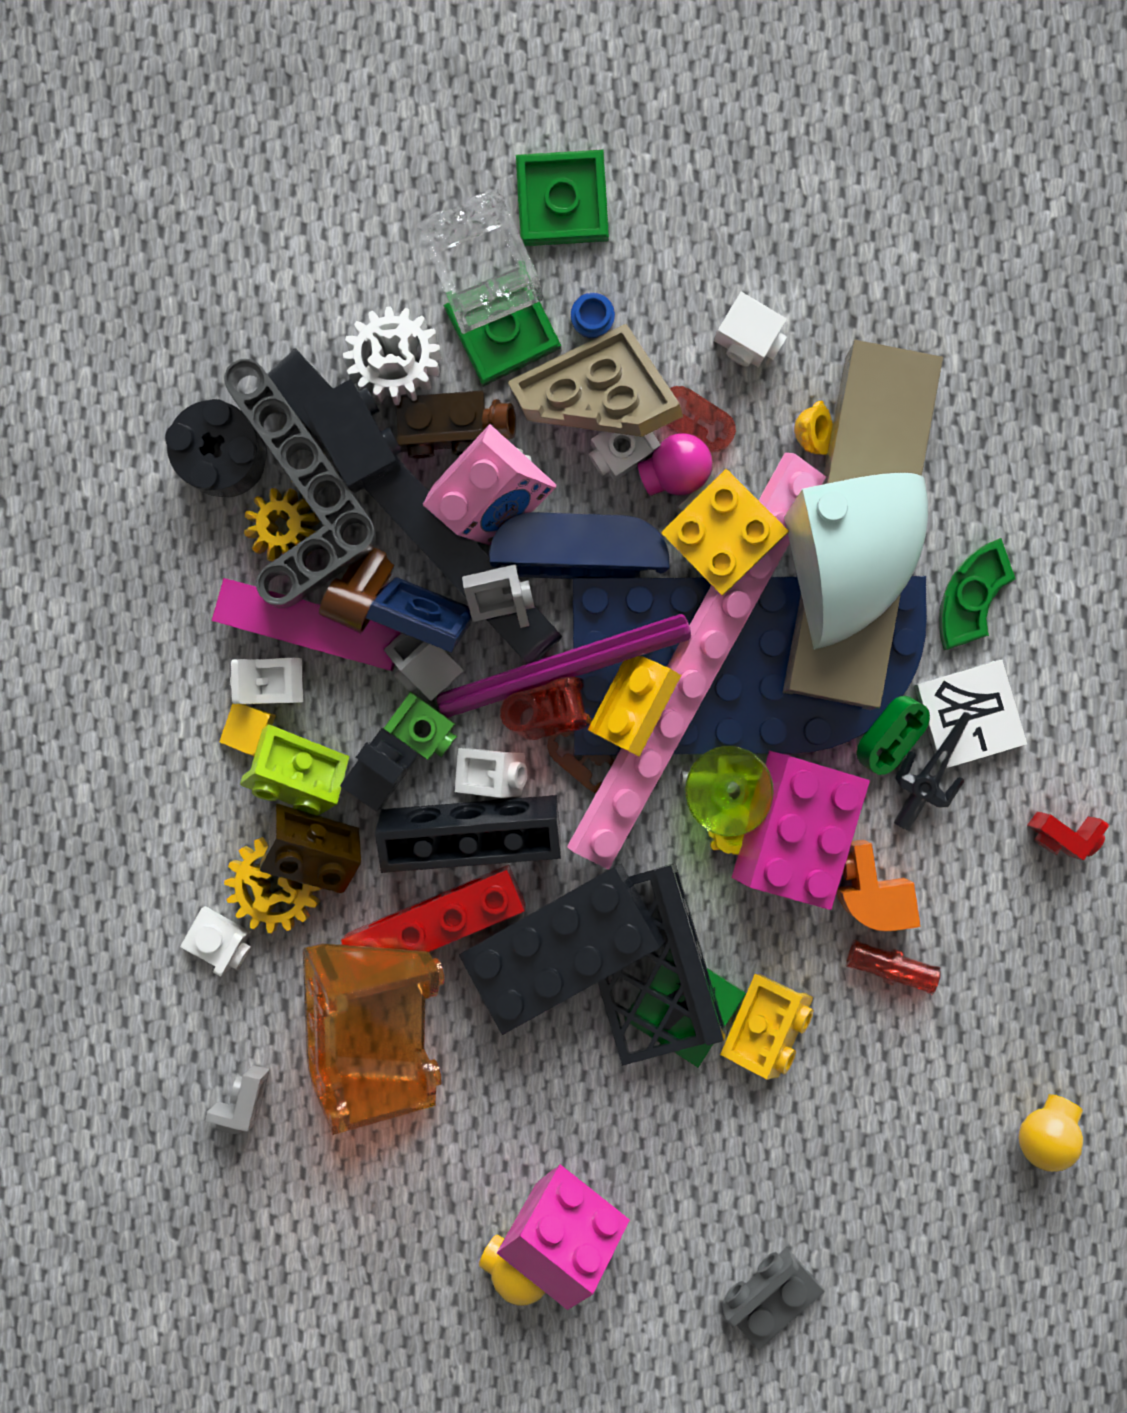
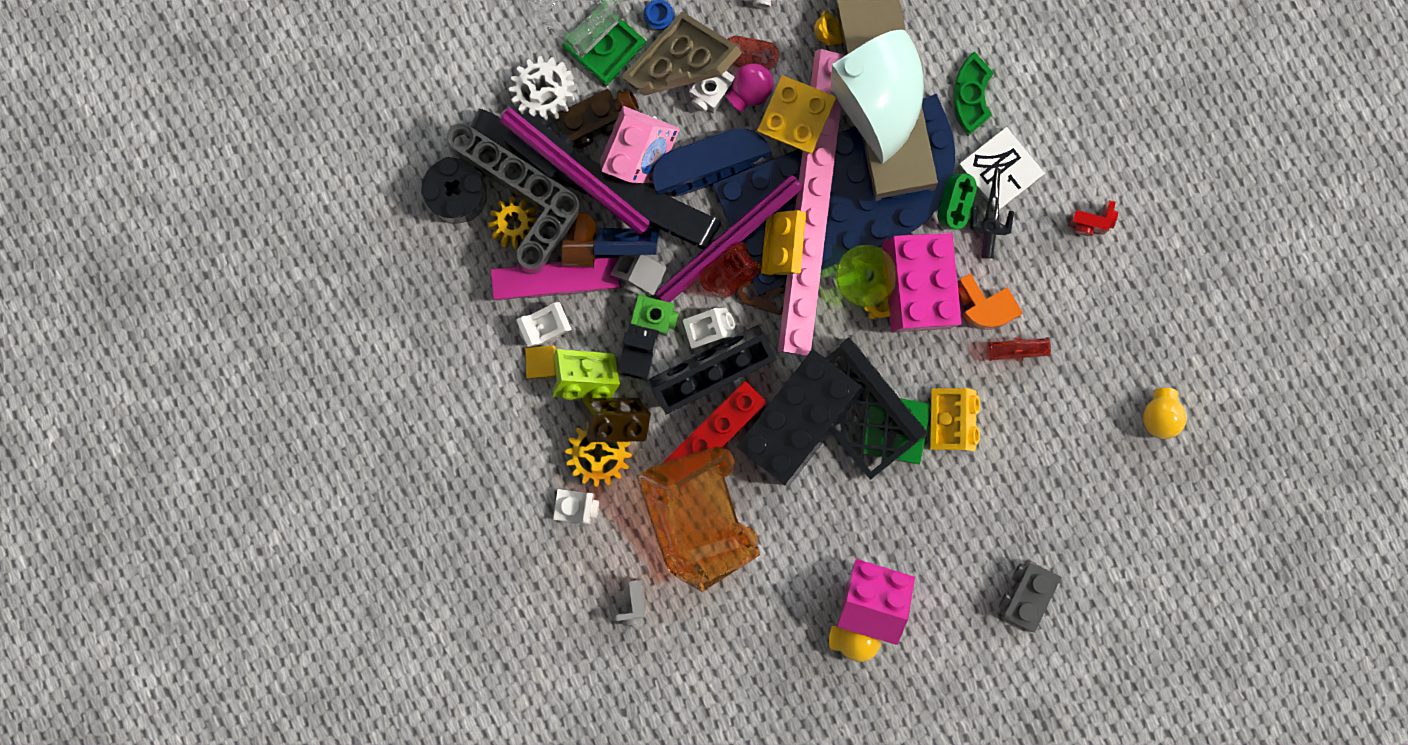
camera: 15 degrees left, 5 degrees down
(381, 487) = (573, 170): none -> magenta axle
(498, 594) = (671, 208): light grey bracket -> none

